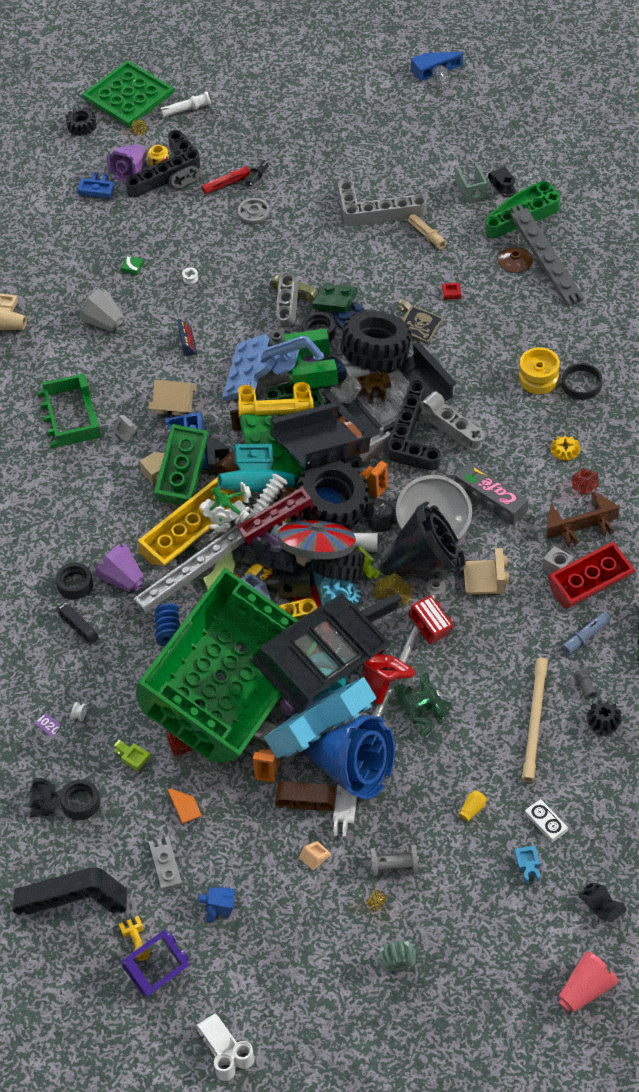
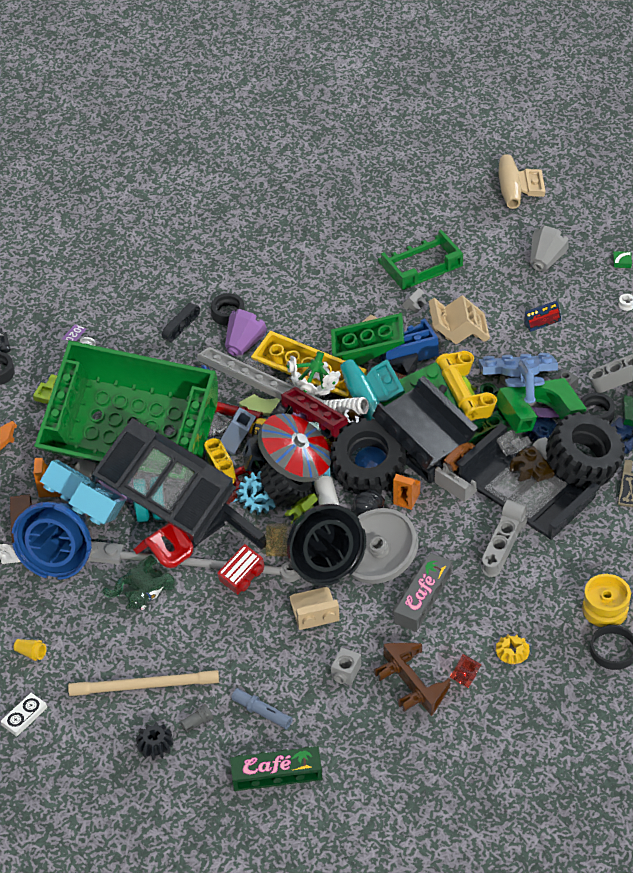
camera: 75 degrees right, 5 degrees down
(405, 448) = (482, 501): black beam -> none
(589, 575) = (334, 696): red brick -> none

